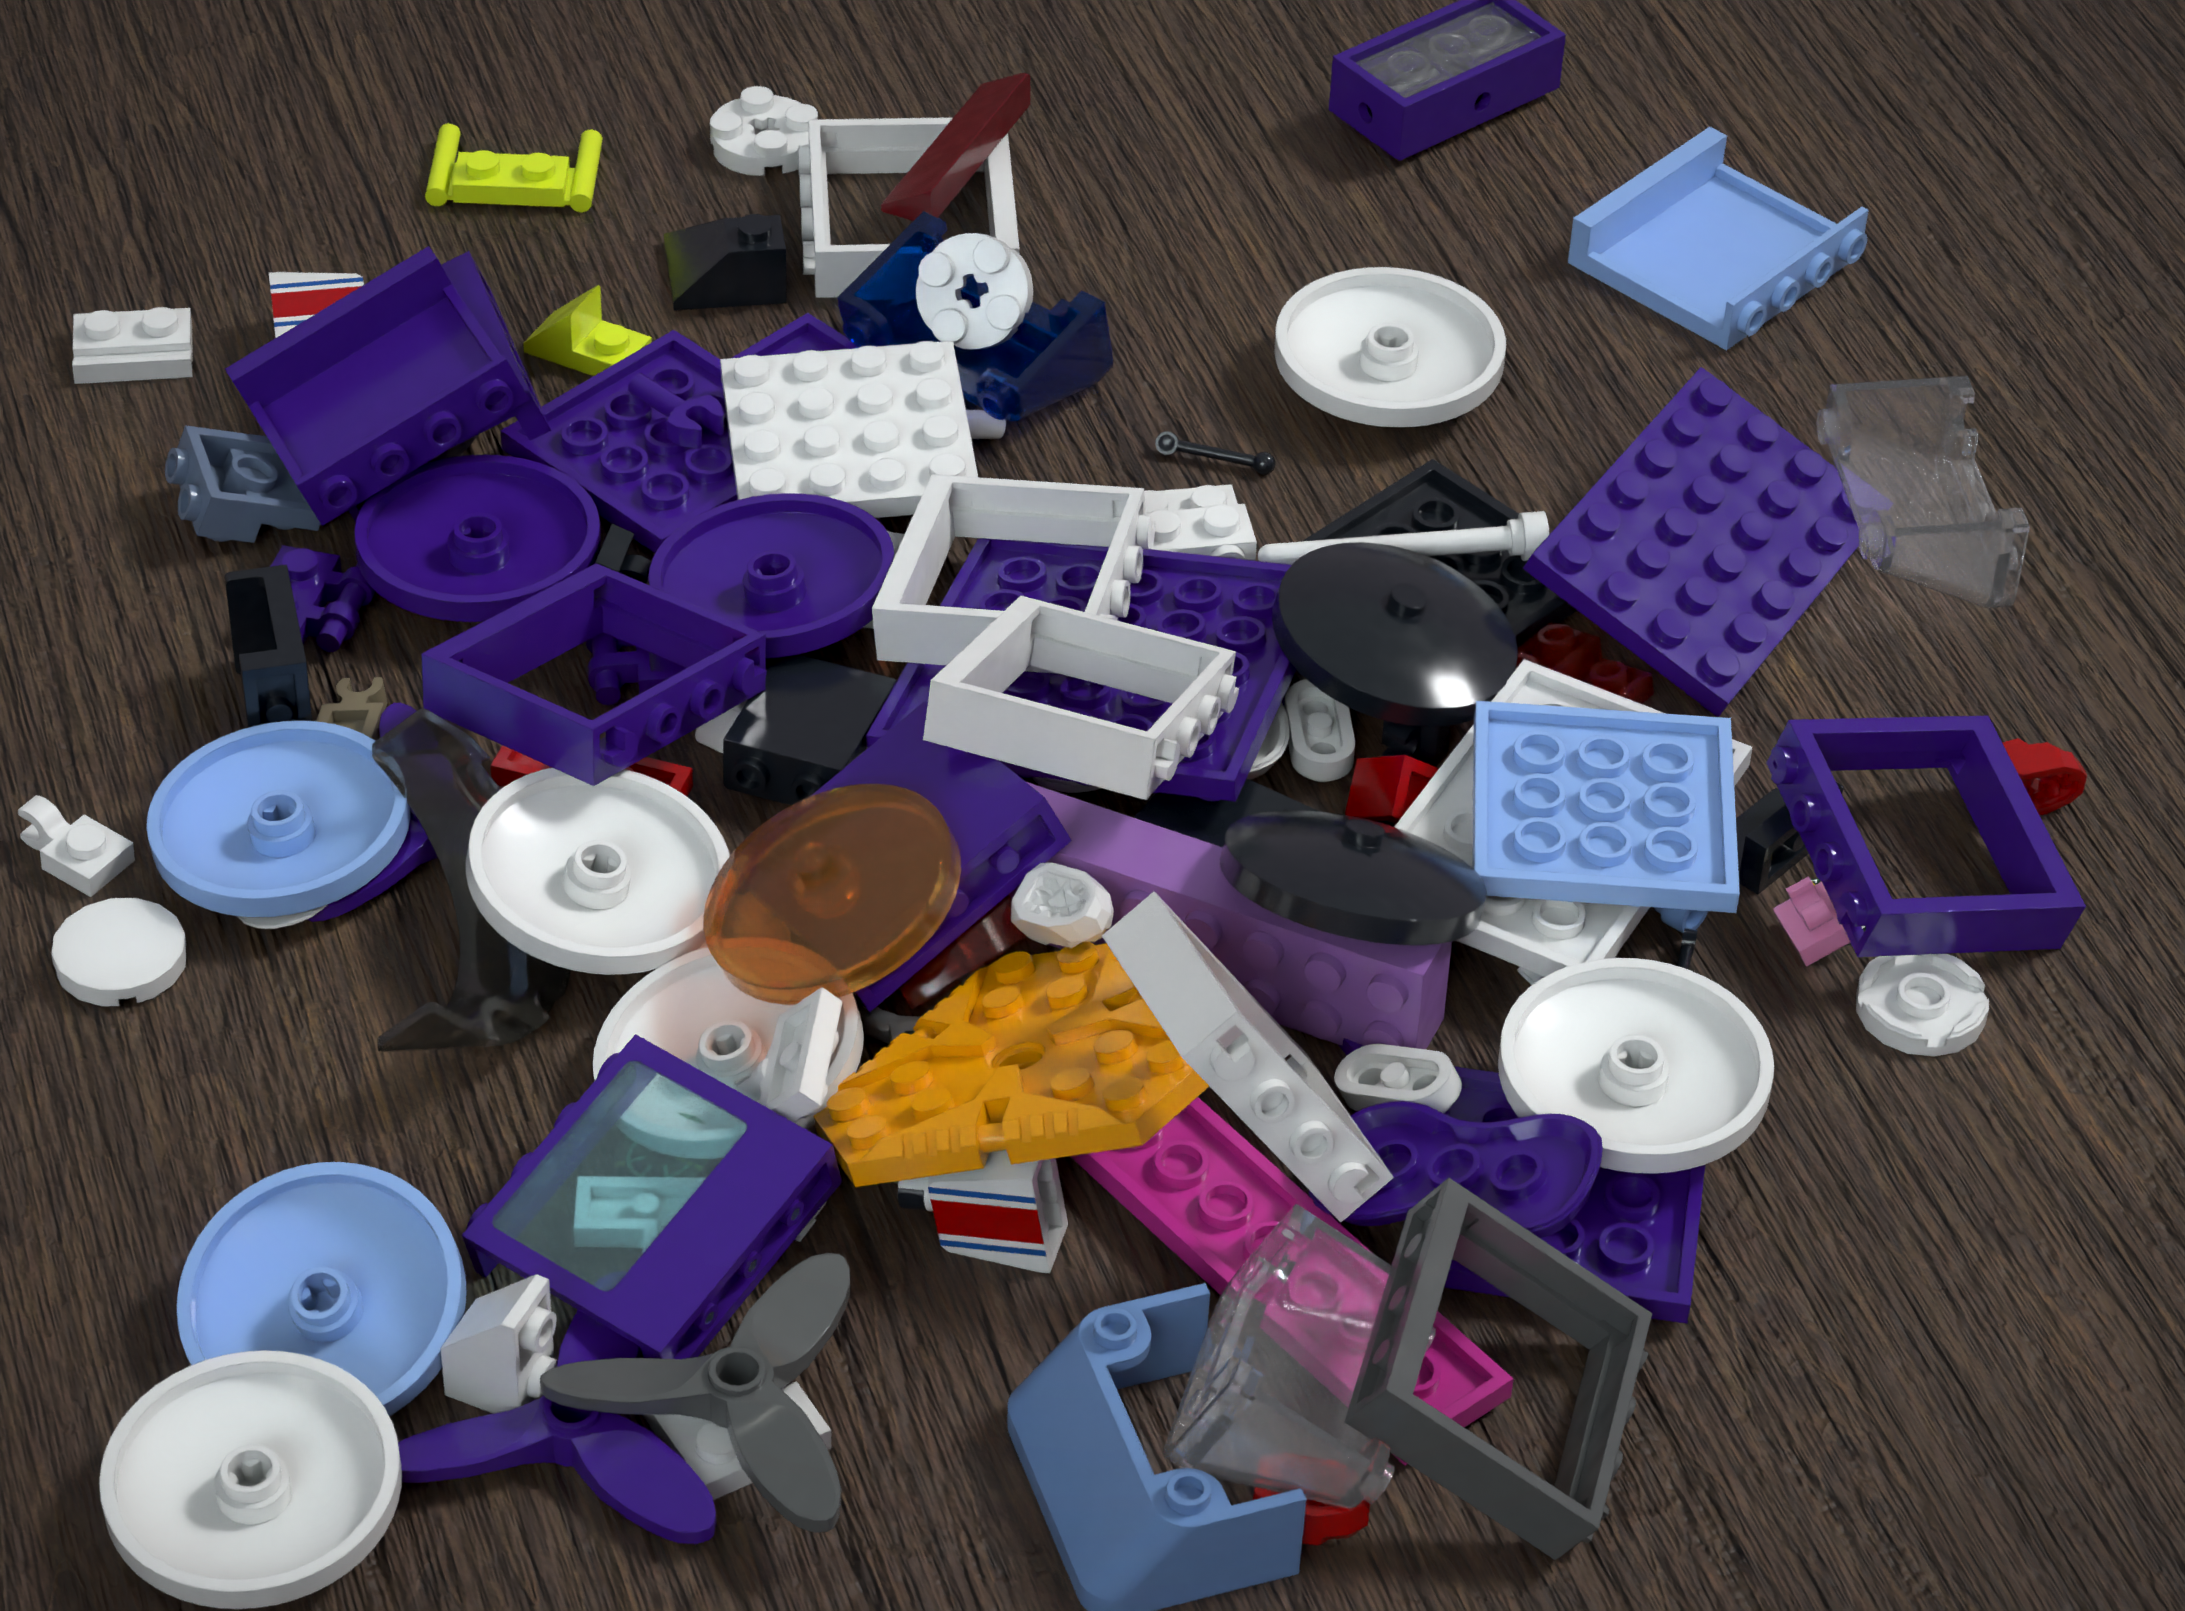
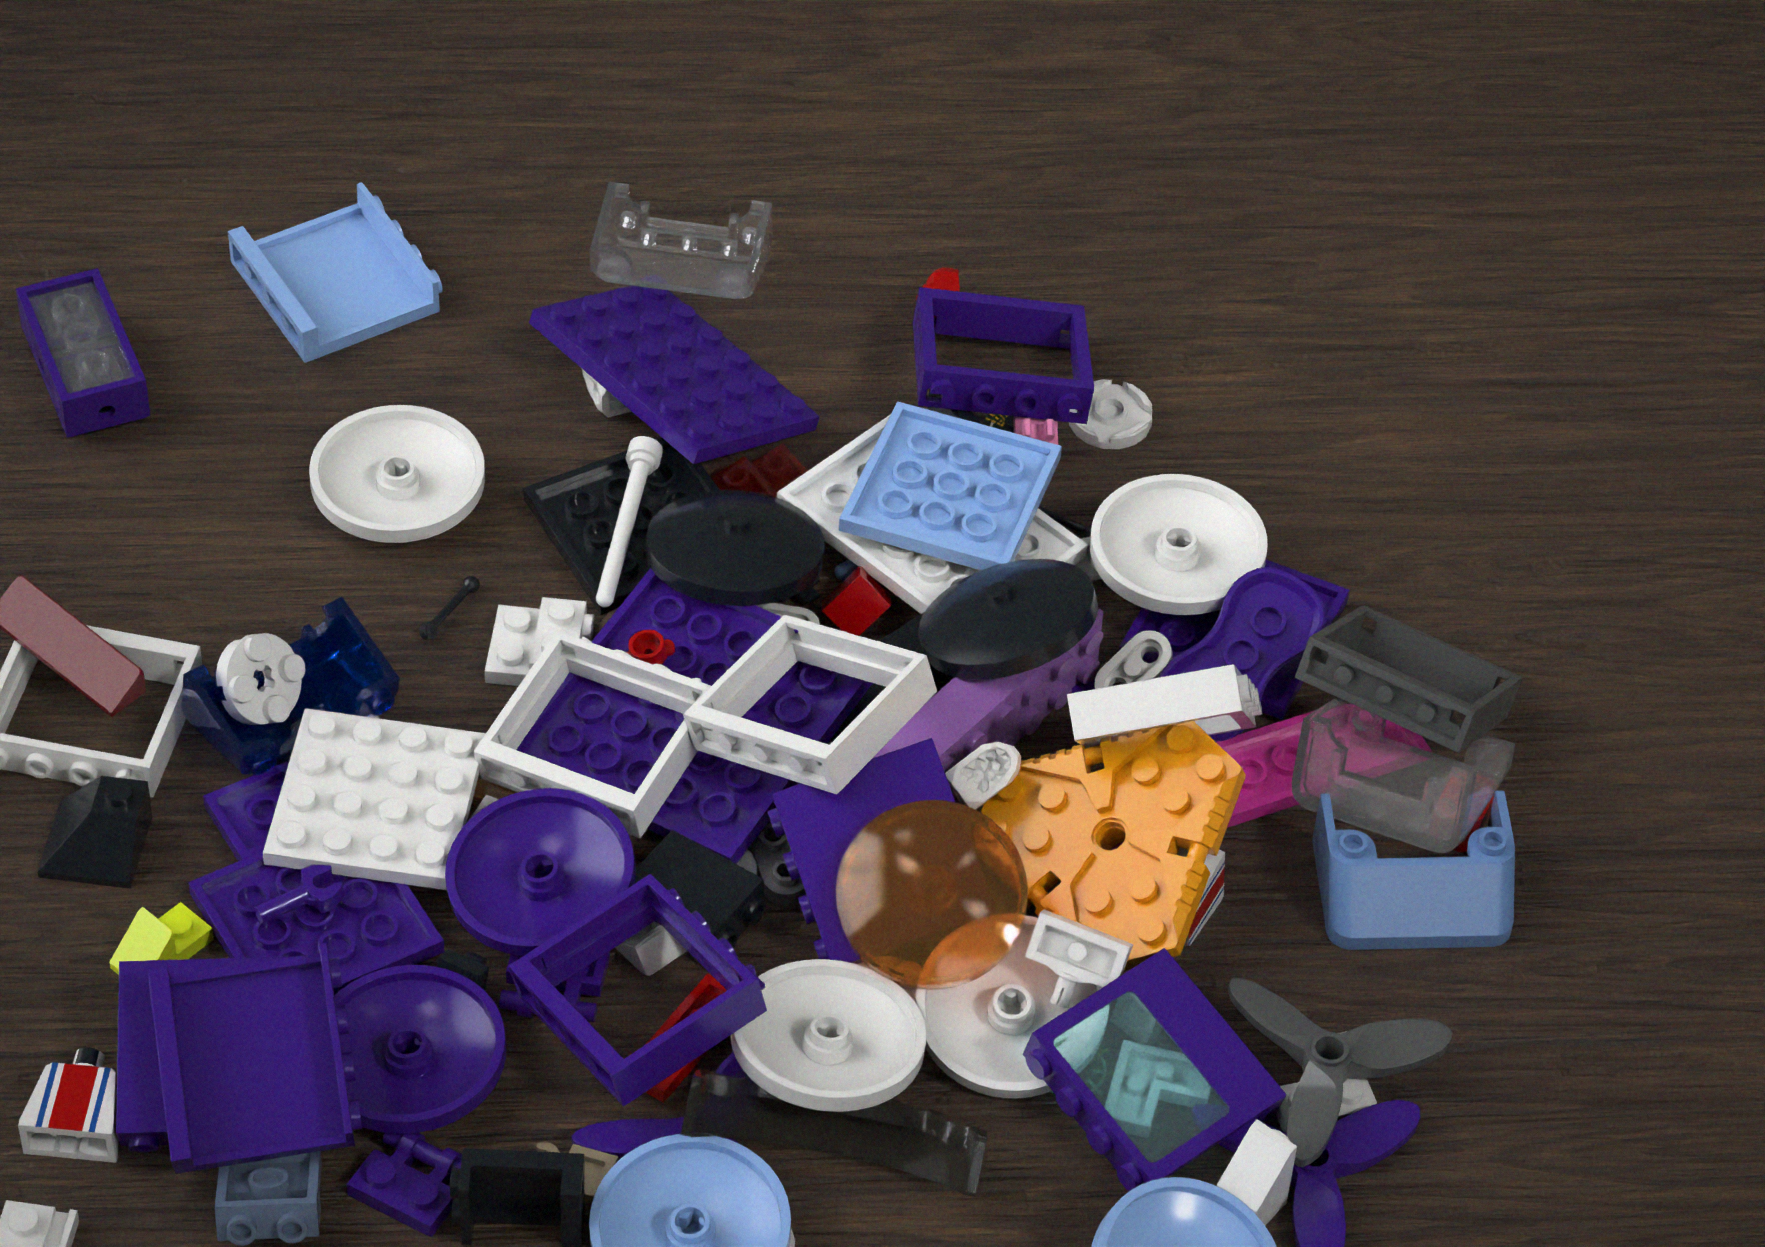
camera: 75 degrees left, 5 degrees up
(1165, 586) = (650, 647): none -> red plate

